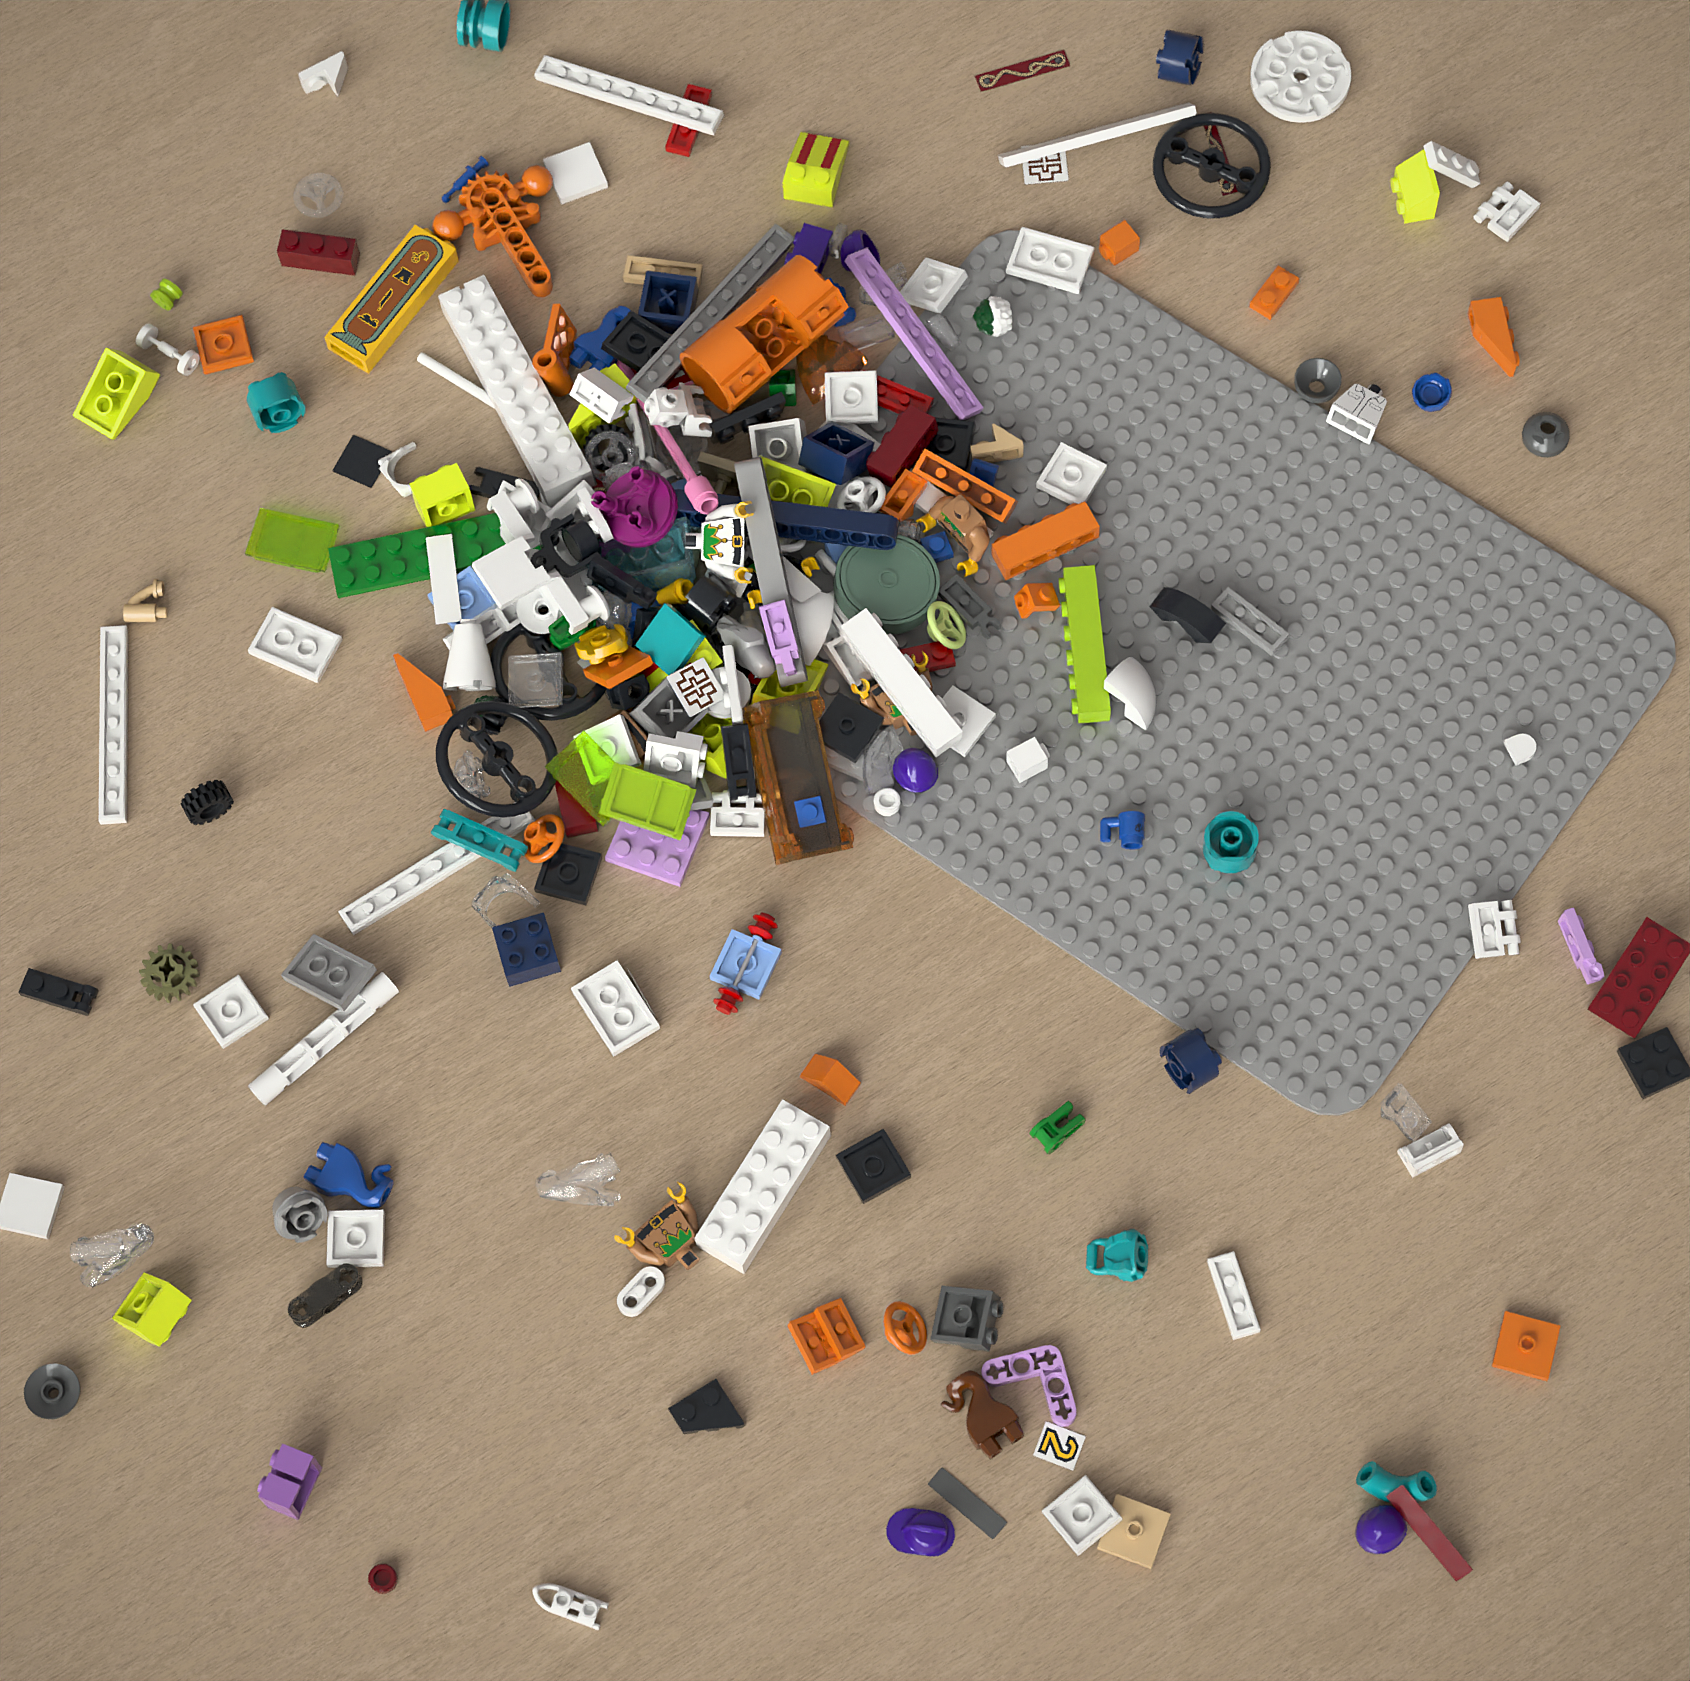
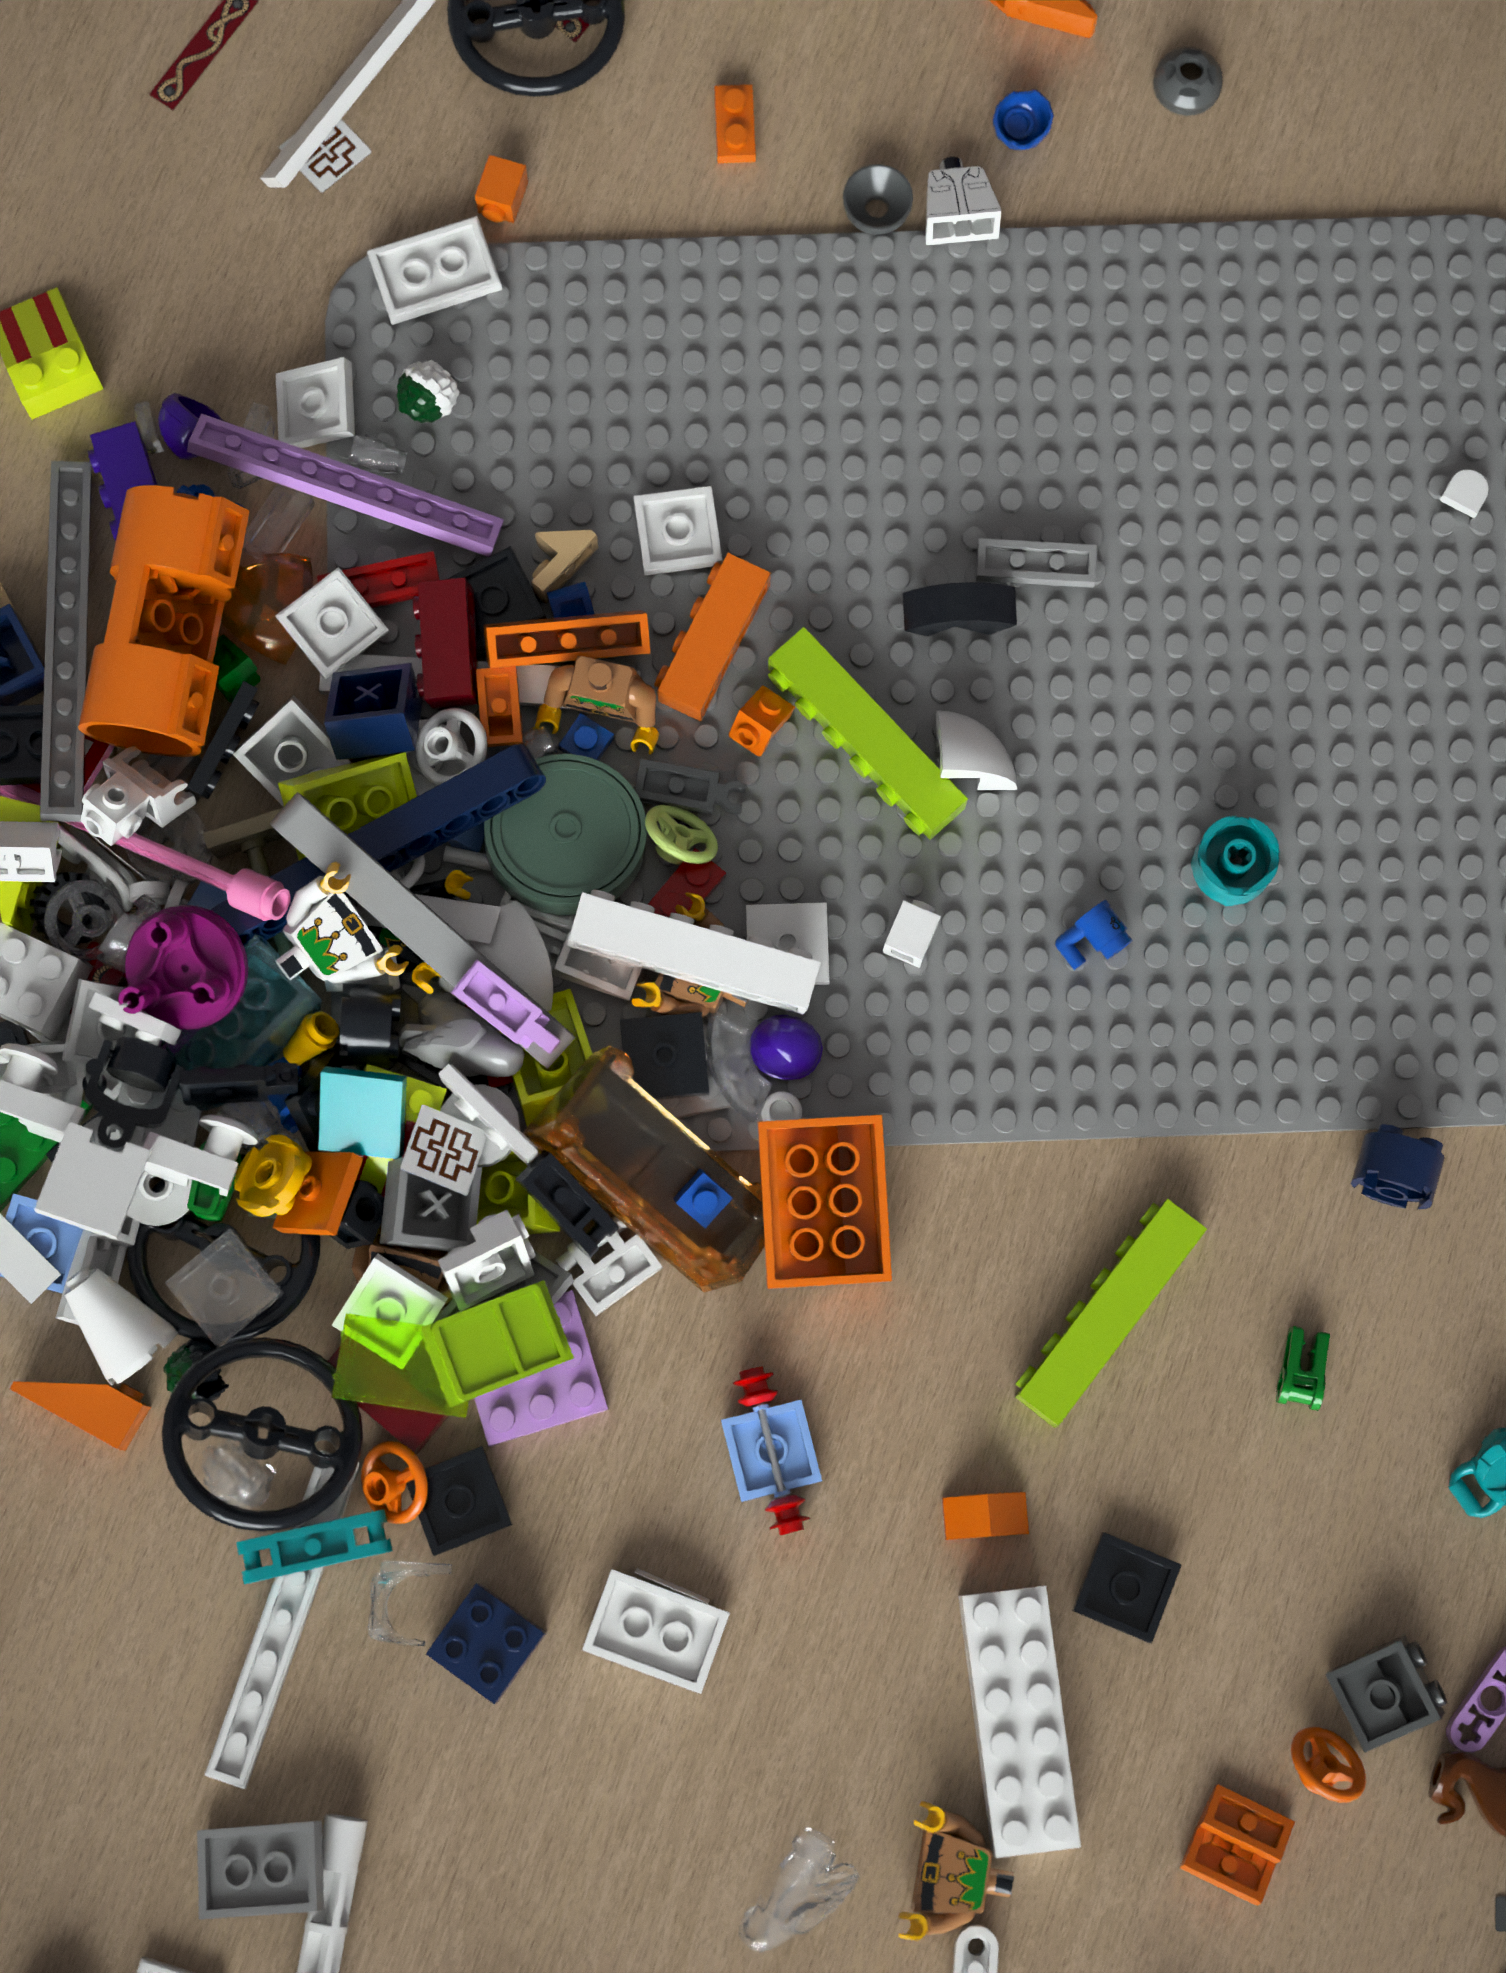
camera: 45 degrees left, 10 degrees up
(871, 856) = (824, 1201): none -> orange slope
(977, 1024) = (1110, 1313): none -> lime brick

